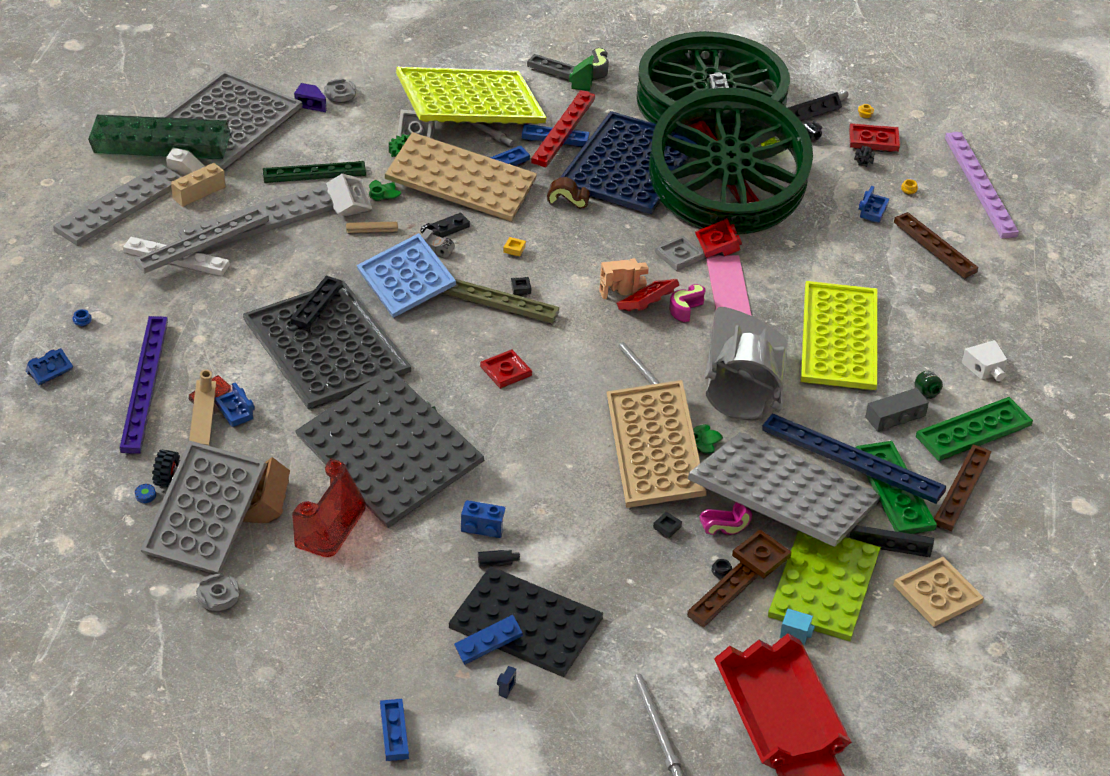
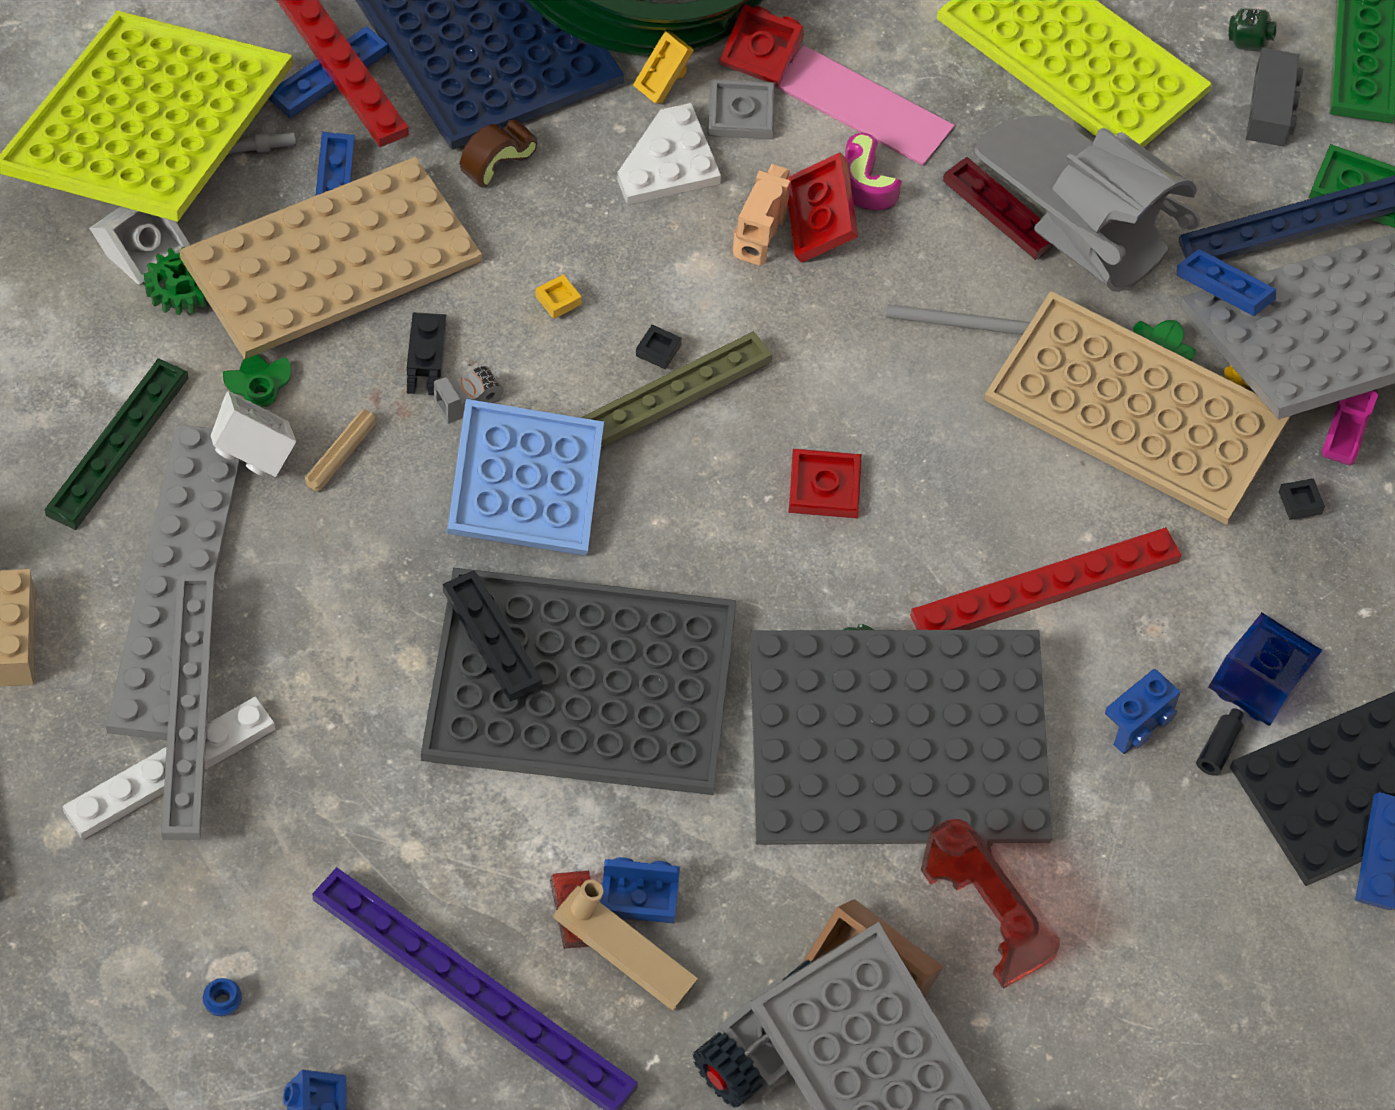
camera: 55 degrees left, 15 degrees up
(530, 463) = (1049, 583): none -> red plate
(553, 553) = (1264, 669): none -> clear blue slope
(626, 244) = (669, 158): none -> white plate
(668, 215) = (663, 67): none -> yellow tile
(756, 435) = (1226, 282): none -> blue plate

